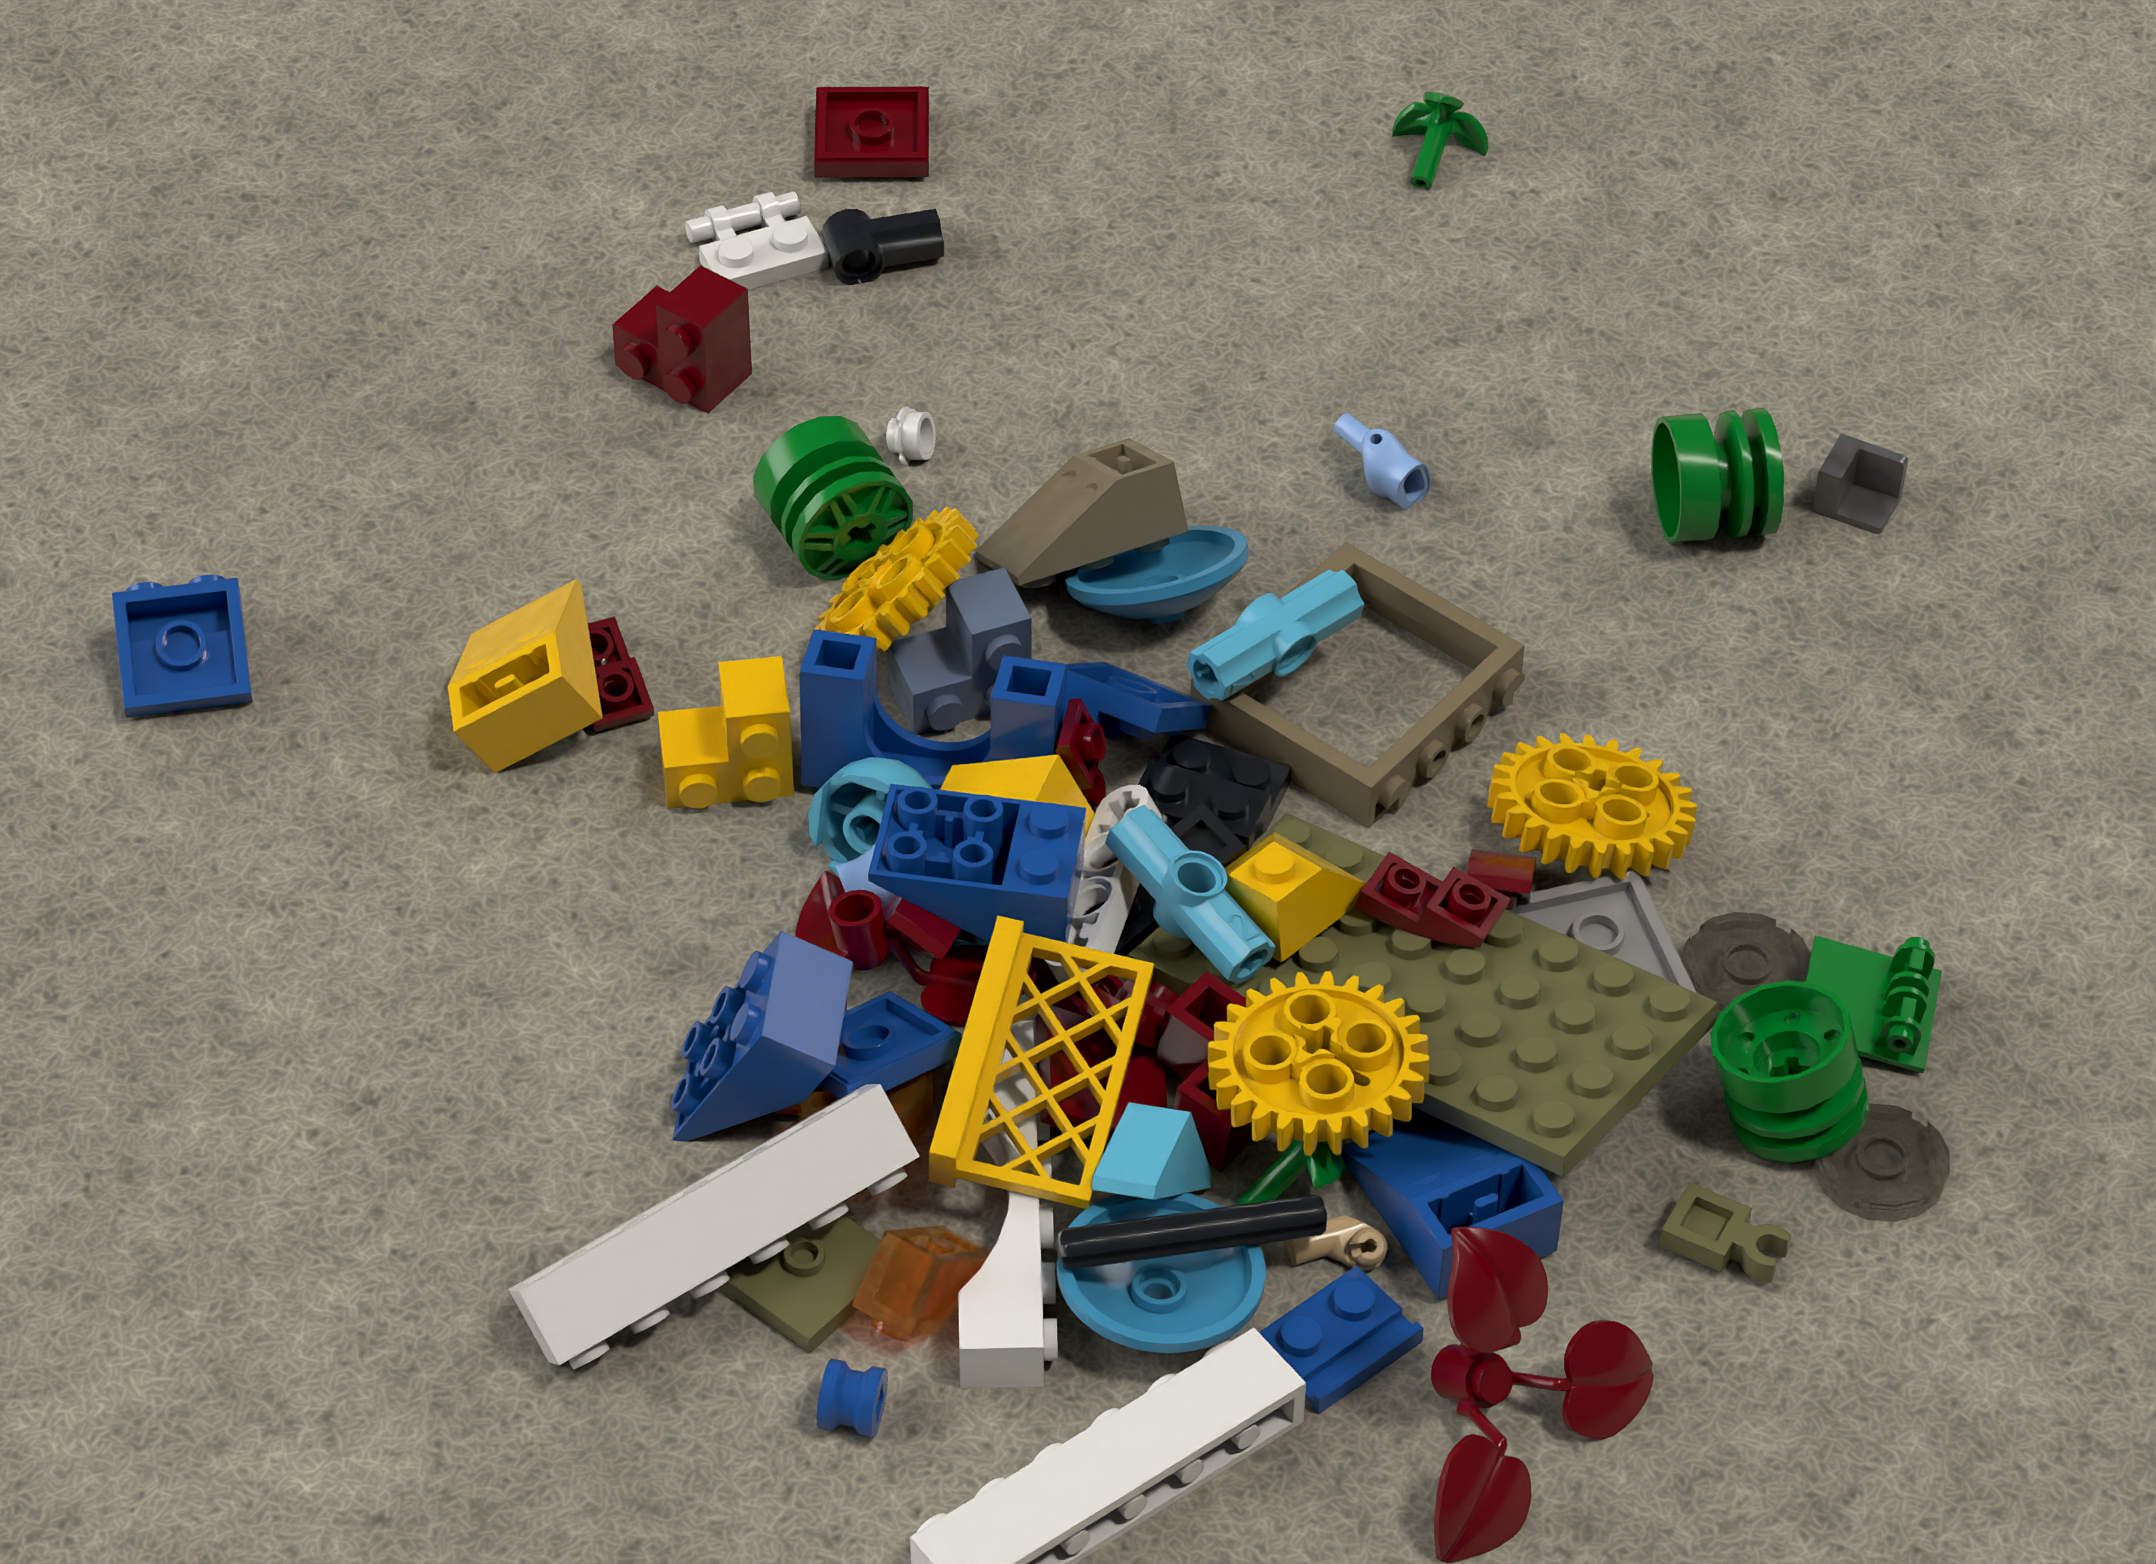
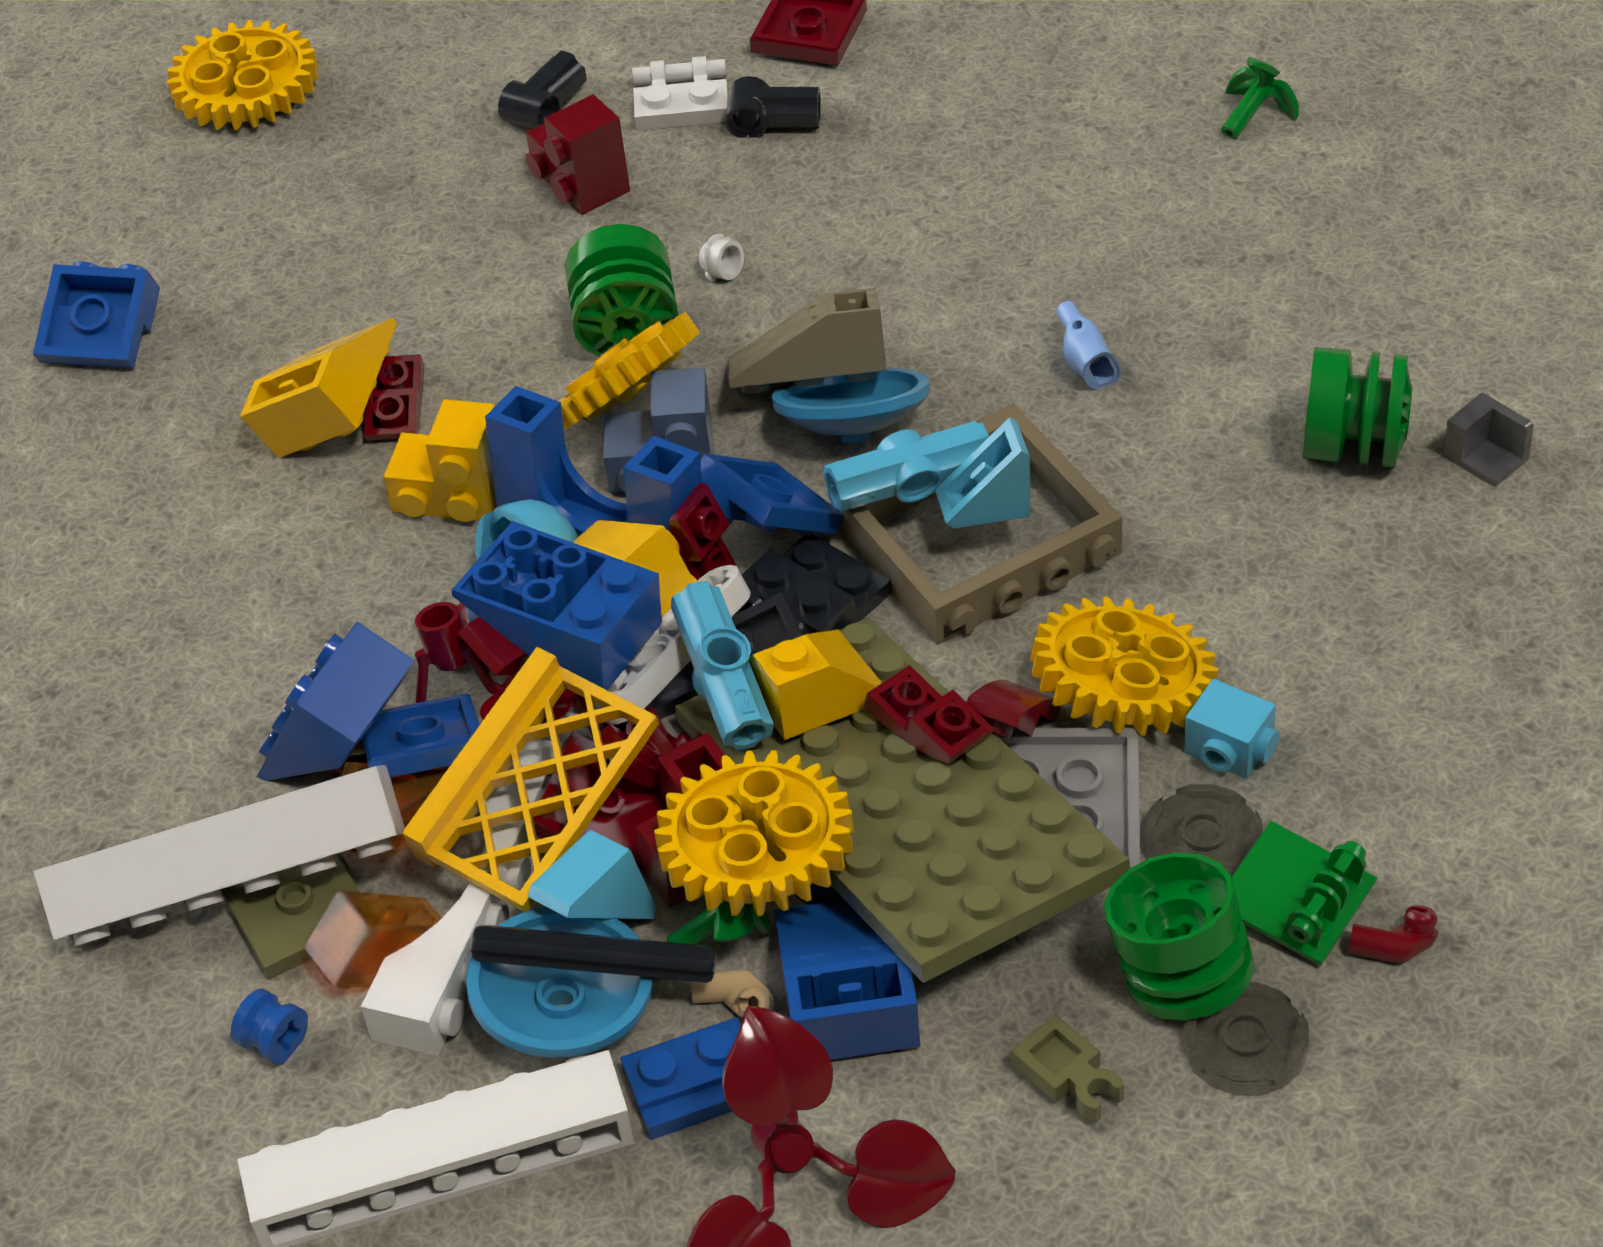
camera: 25 degrees right, 0 degrees up
(150, 311) = (243, 74): none -> yellow gear
(590, 278) = (543, 93): none -> black piece
(1377, 633) = (990, 482): none -> medium azure slope
(1733, 850) = (1231, 729): none -> medium azure brick
(1991, 1031) = (1399, 943): none -> dark red arm

